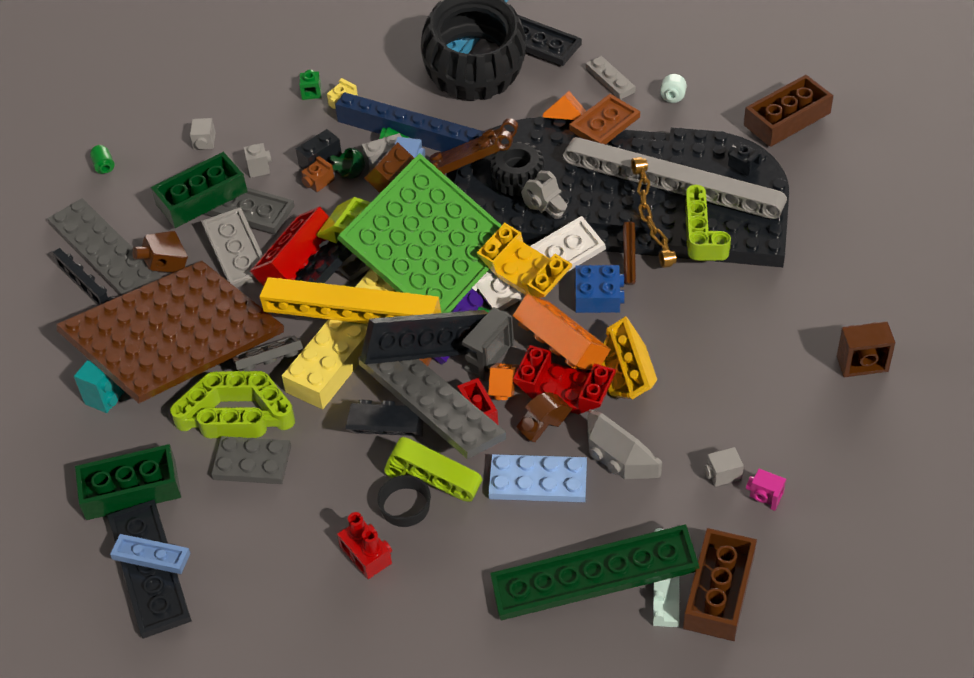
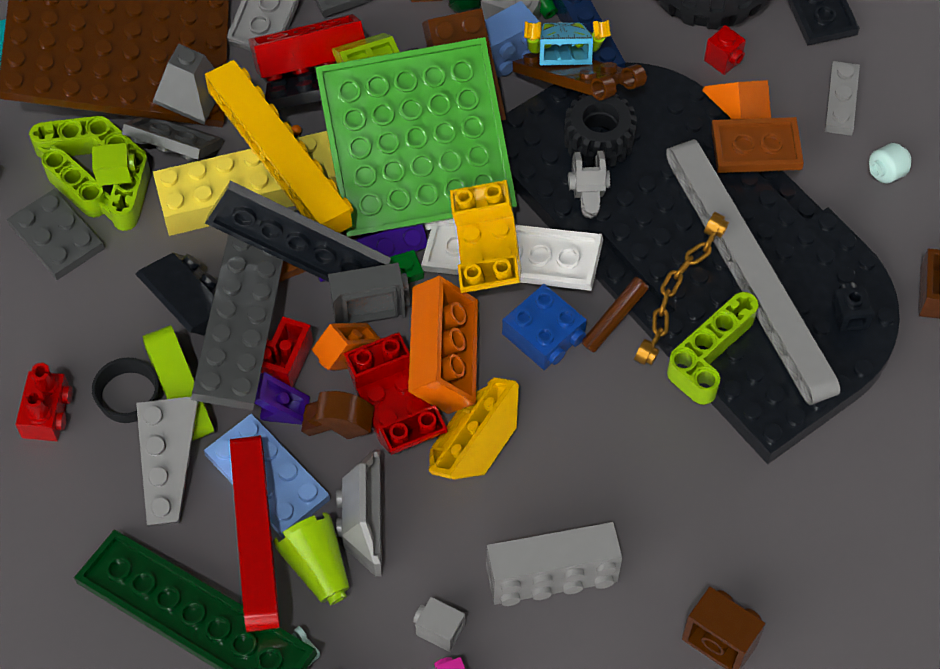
camera: 40 degrees right, 10 degrees up
(246, 316) = (185, 86): none -> slope
(254, 387) = (112, 164): none -> lime brick
(449, 139) = (565, 42): none -> medium azure torso
(471, 506) = (165, 448): none -> light grey wing
(513, 438) = (280, 401): none -> dark purple slope
(526, 94) = (725, 50): none -> red brick
(581, 500) = (254, 534): none -> red beam
(623, 489) = (315, 557): none -> lime cone
(748, 388) = (553, 564): none -> light grey brick

